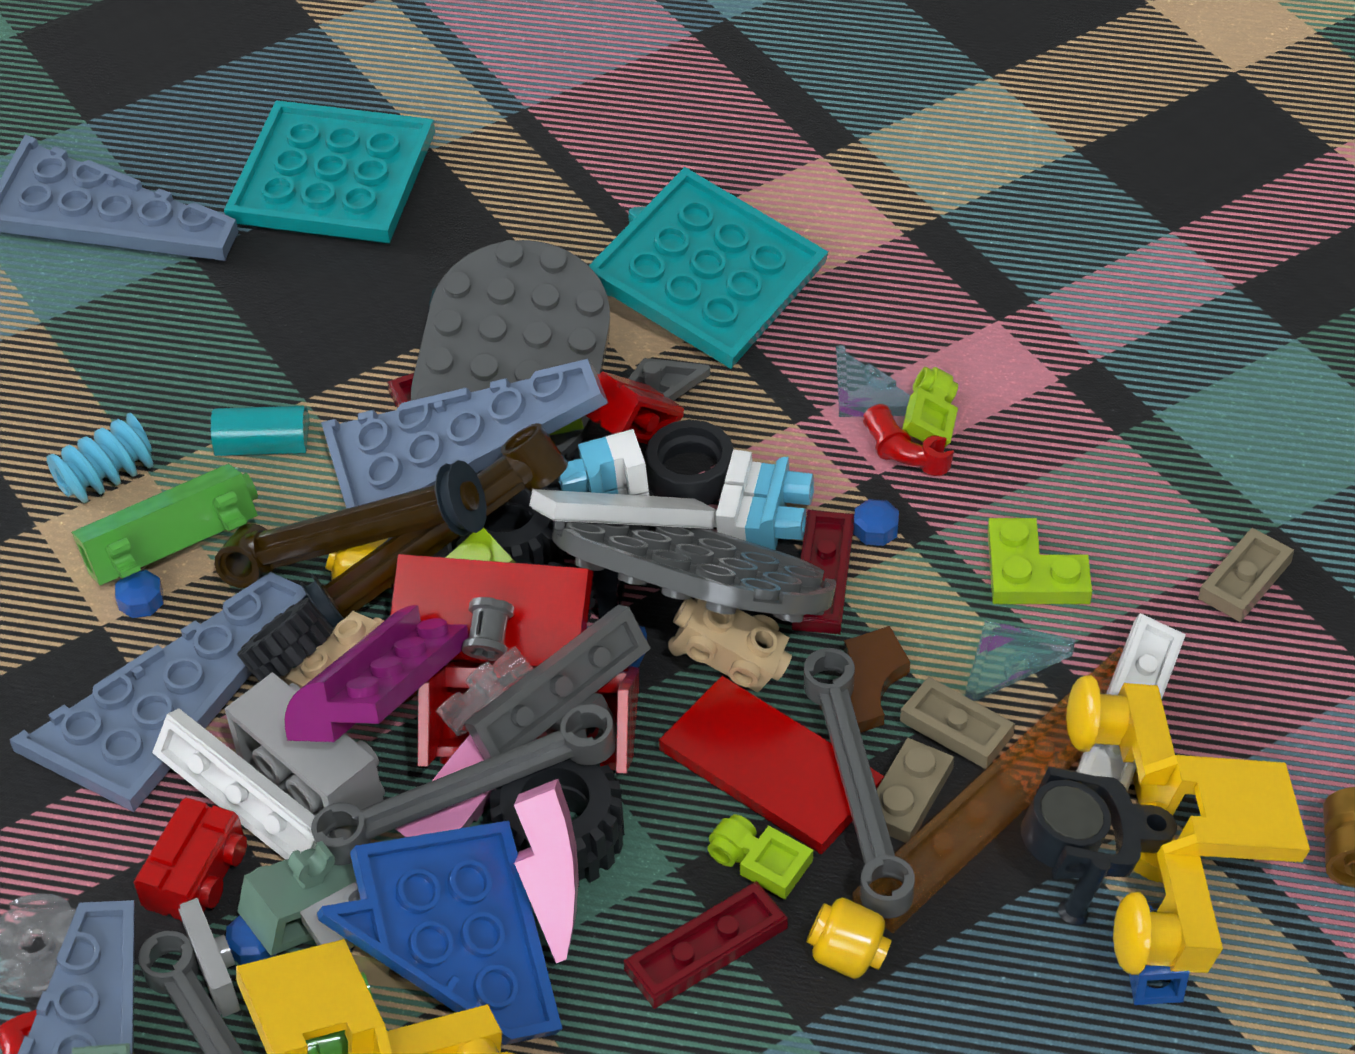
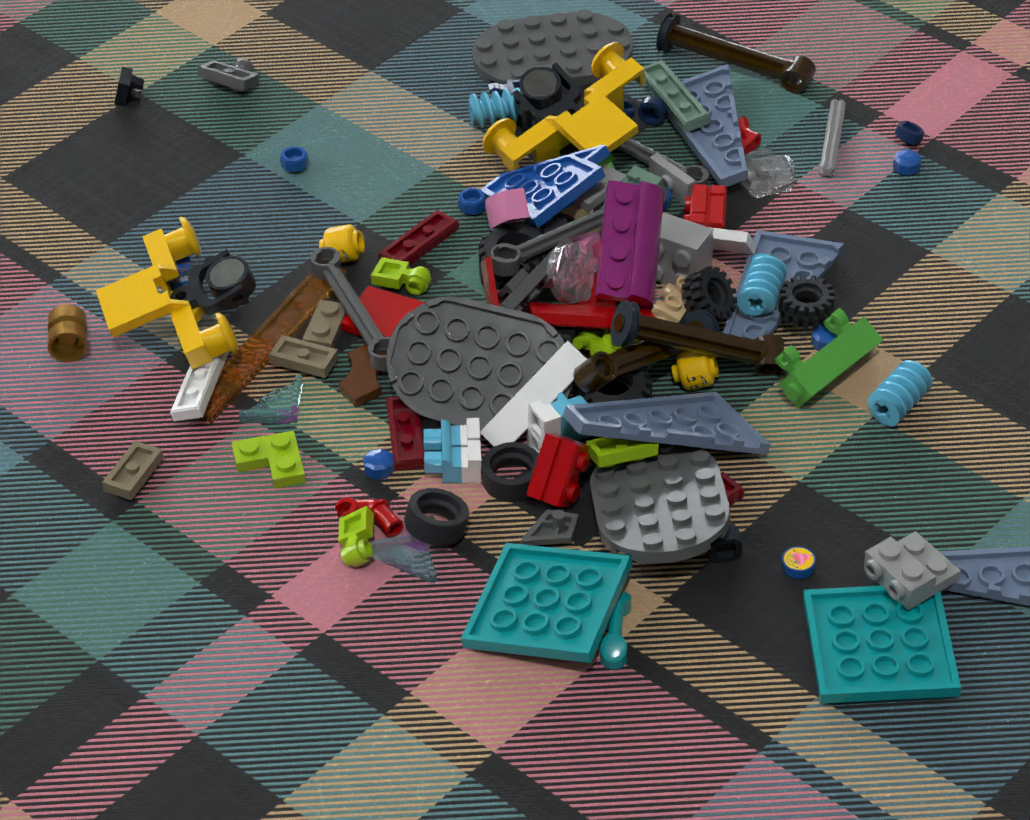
camera: 165 degrees right, 5 degrees down
(147, 631) = (806, 290): none -> black tyre
(194, 639) = (761, 285): none -> medium azure piece
(252, 213) = (910, 569): none -> light grey plate
(259, 430) = (813, 444): teal brick -> none
(370, 284) = (798, 562): none -> tile
(487, 628) = (578, 285): dark grey bush -> none
(584, 1004) = (471, 201): none -> blue tile
(807, 376) = (432, 530): none -> black tyre

